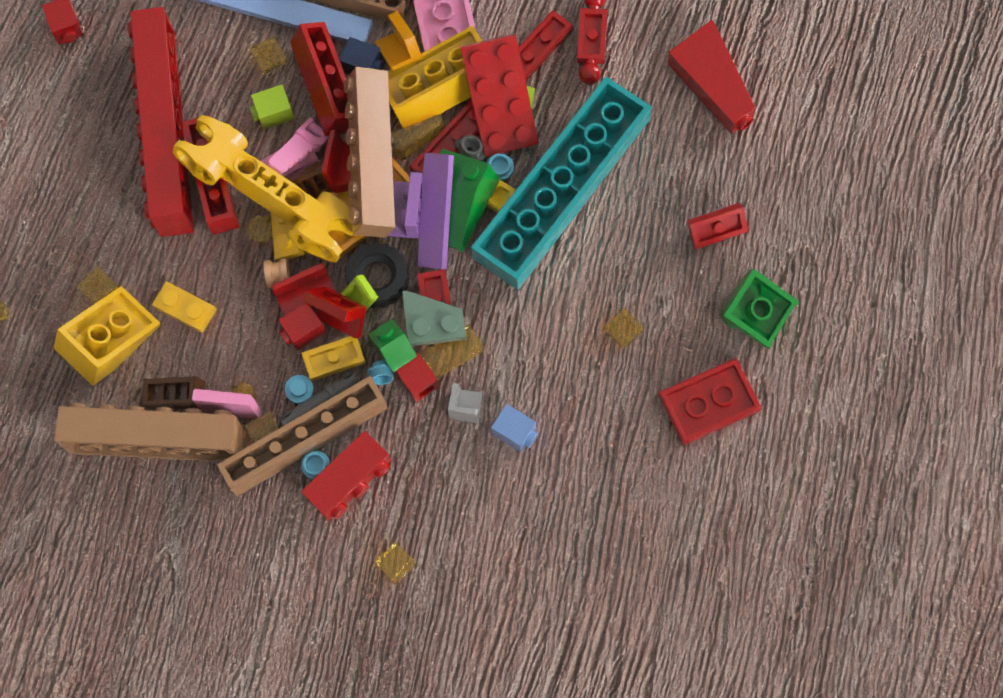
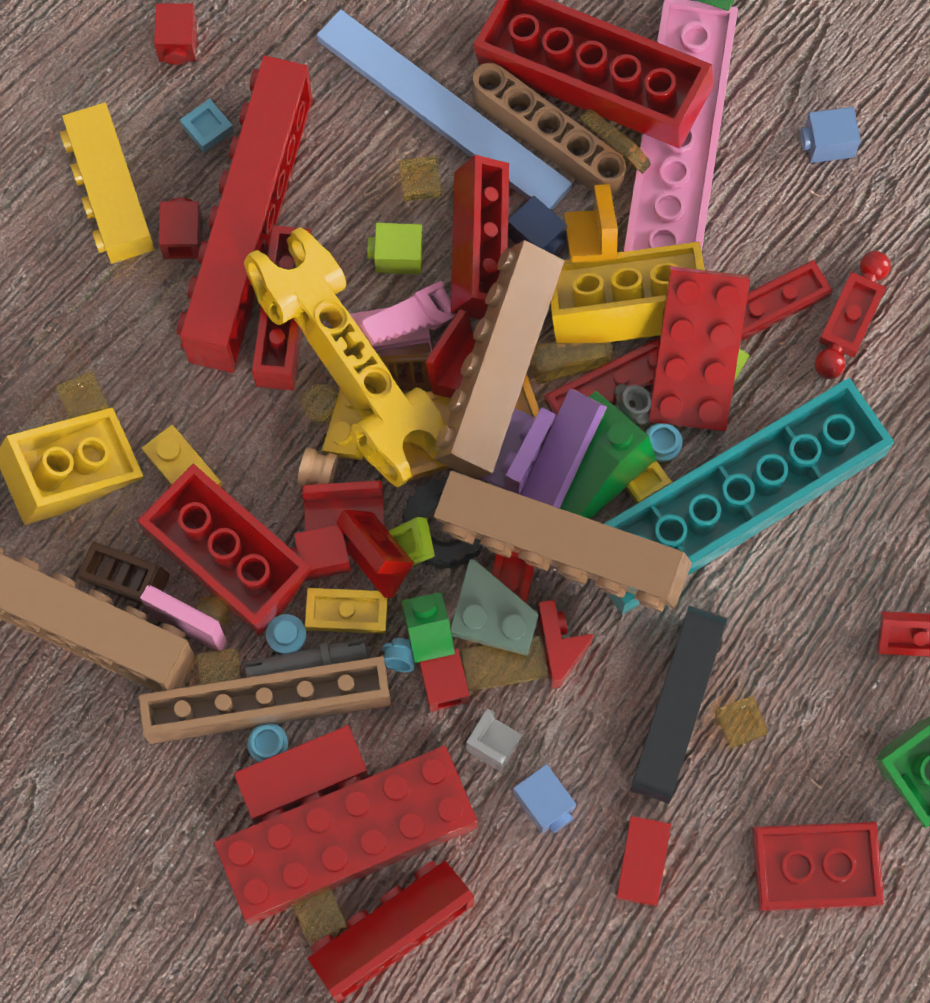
camera: 15 degrees right, 0 degrees up
(57, 137) = (107, 183): none -> yellow brick
(109, 74) = (206, 125): none -> medium azure plate
(119, 150) = (180, 228): none -> red brick
(235, 348) = (225, 548): none -> red slope
(392, 502) = (346, 835): none -> red brick
(447, 552) = (391, 930): none -> red slope
(459, 252) = (564, 540): none -> medium nougat brick
(486, 329) = (560, 653): none -> red slope
(578, 332) = (678, 704): none -> black beam
(595, 443) = (643, 861): none -> red tile

